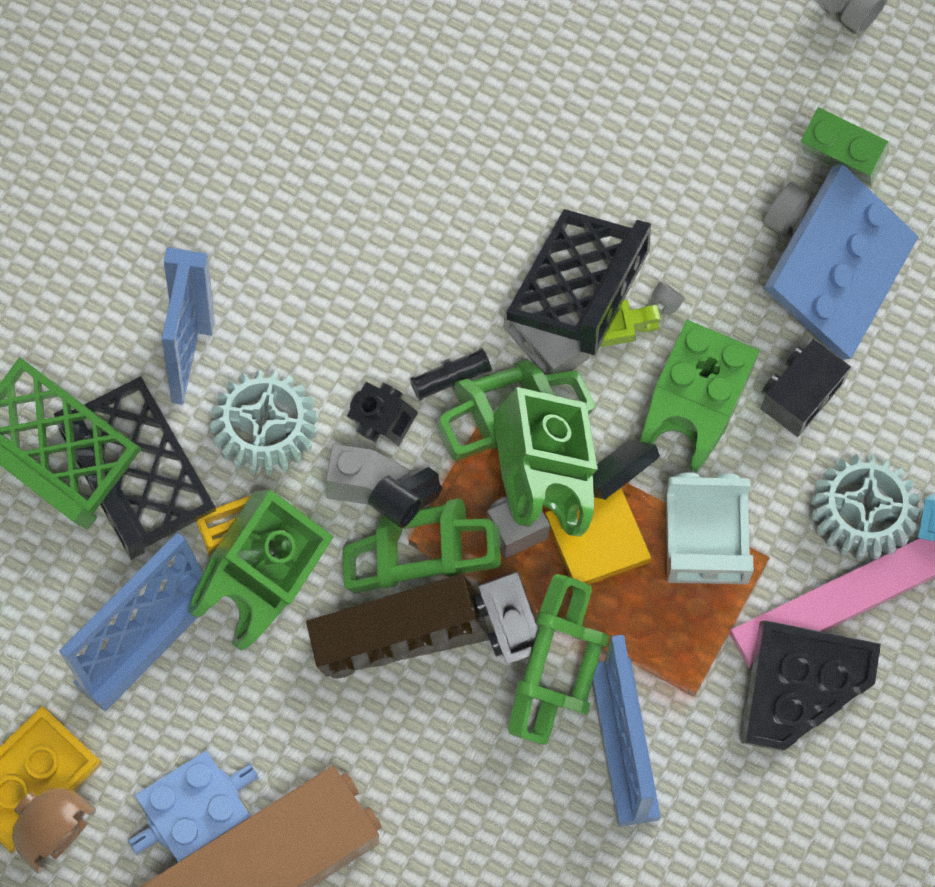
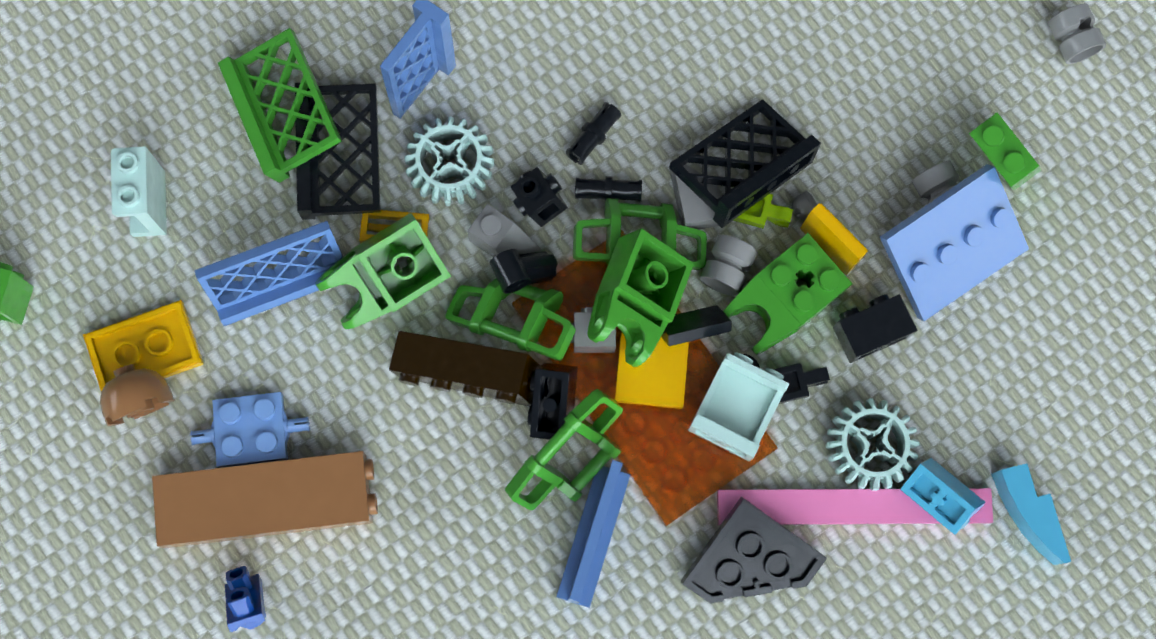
camera: 25 degrees right, 10 degrees up
(403, 324) = (593, 133): none -> black pin
(620, 393) = (730, 261): none -> light grey wheel
(716, 311) = (834, 238): none -> yellow tile
(760, 475) = (800, 381): none -> black plate

